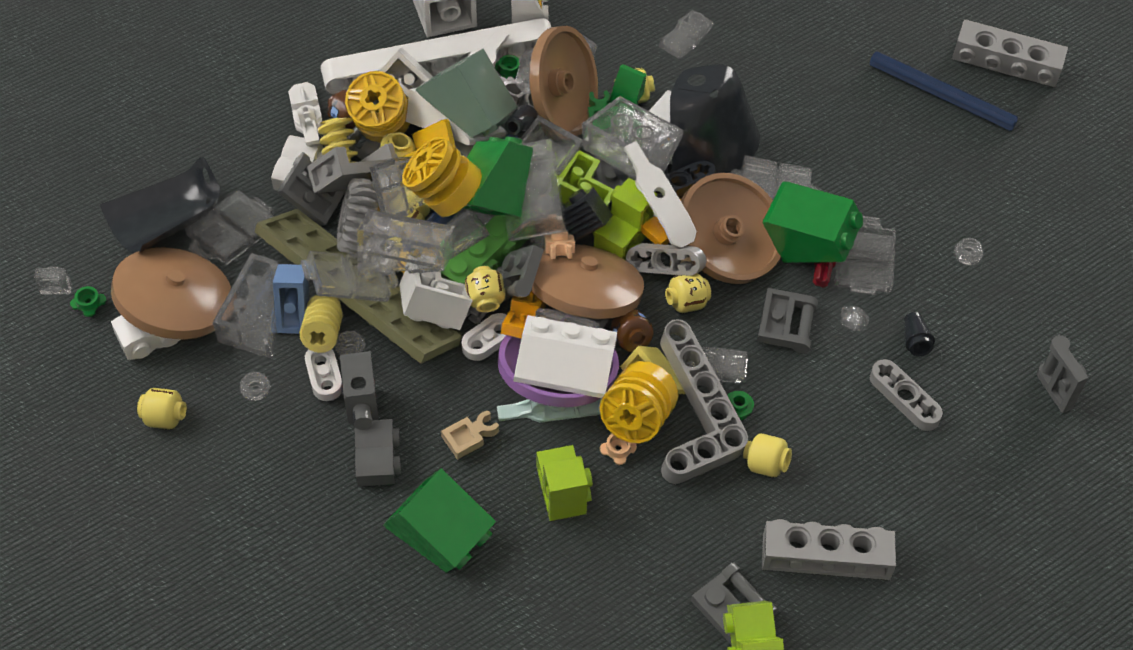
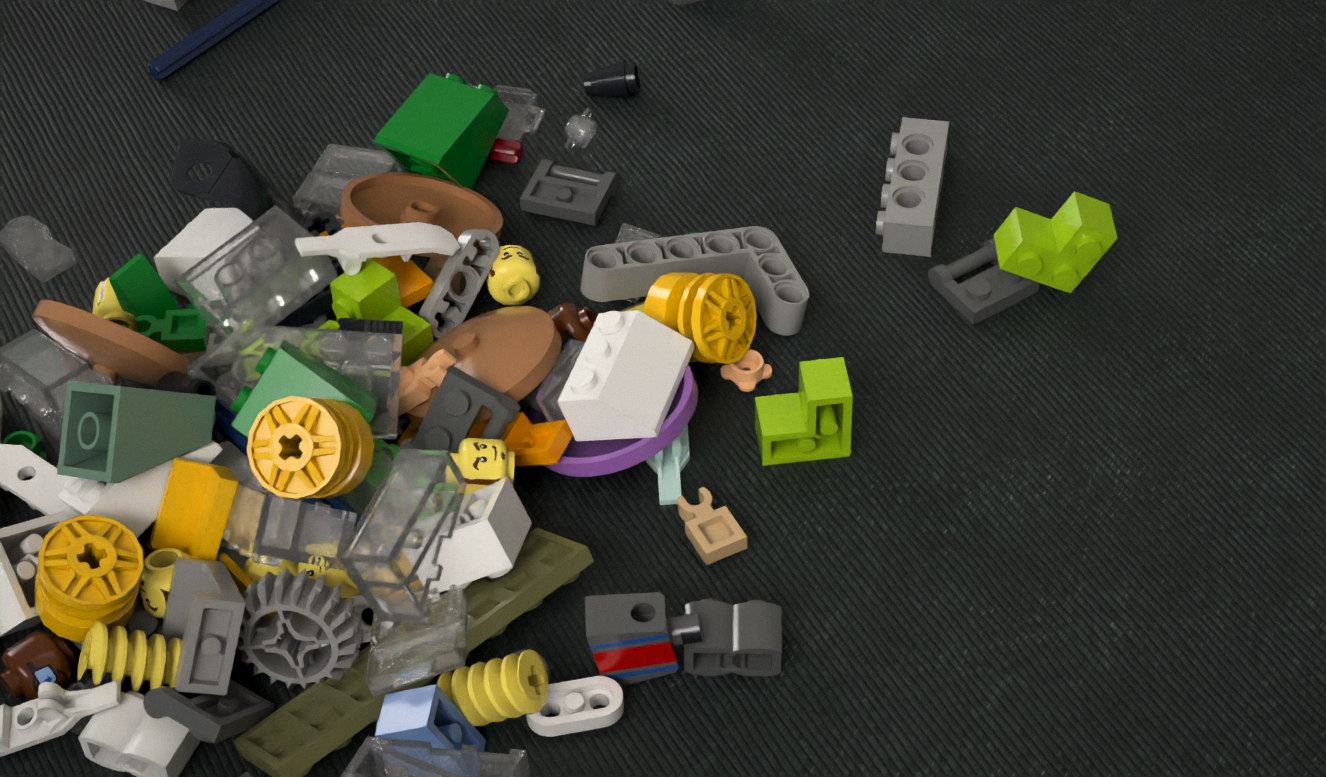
camera: 80 degrees left, 10 degrees down
(441, 522) = (856, 562): green slope -> none
(484, 336) = (550, 503): white plate -> none
(767, 455) = (783, 216): light yellow head -> none
(903, 381) = (675, 115): light grey beam -> none
(971, 246) = (496, 27): clear plate -> none

